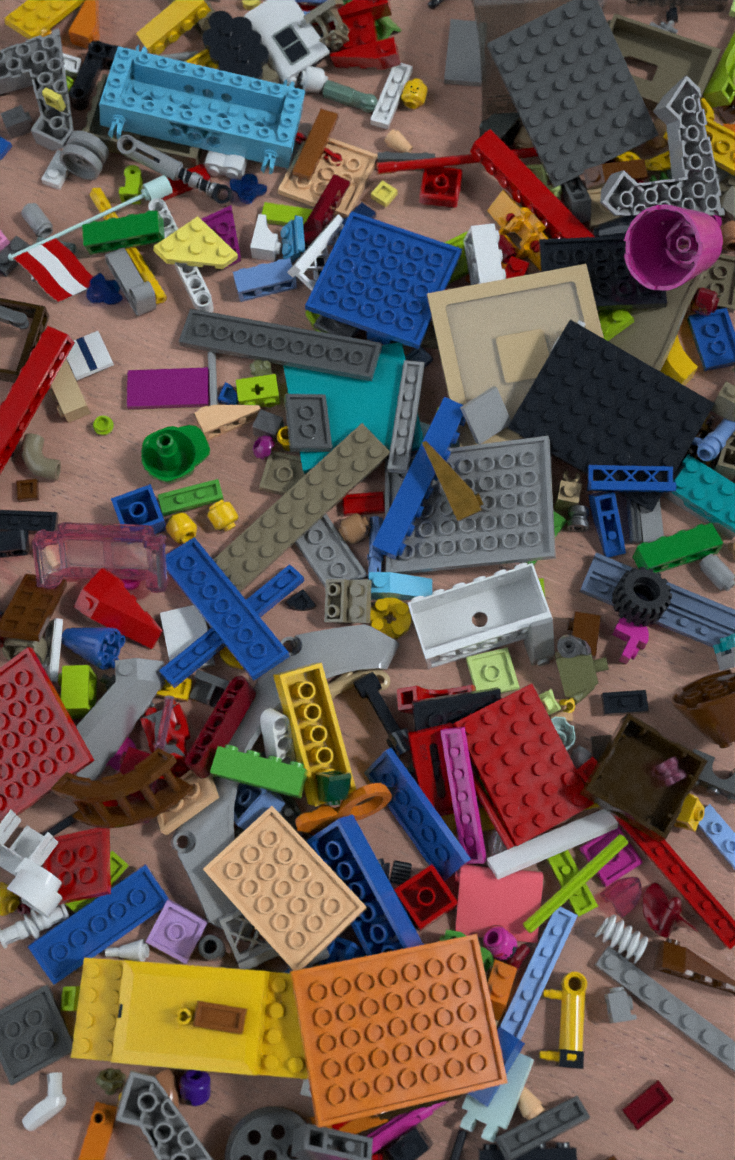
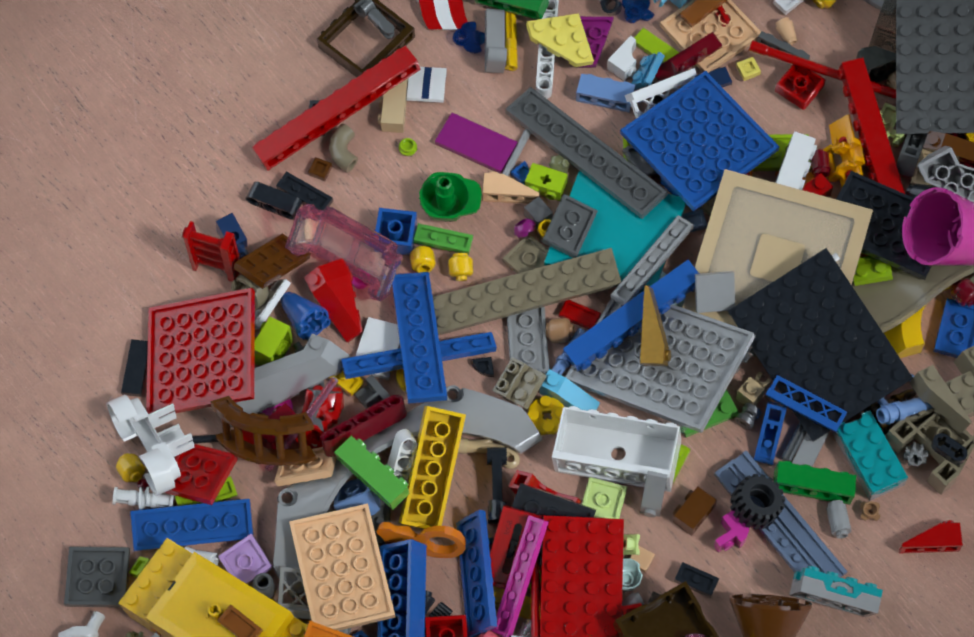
camera: 30 degrees right, 5 degrees down
(333, 786) = (421, 514): dark green slope -> none
(577, 670) = (670, 530): olive torso -> none

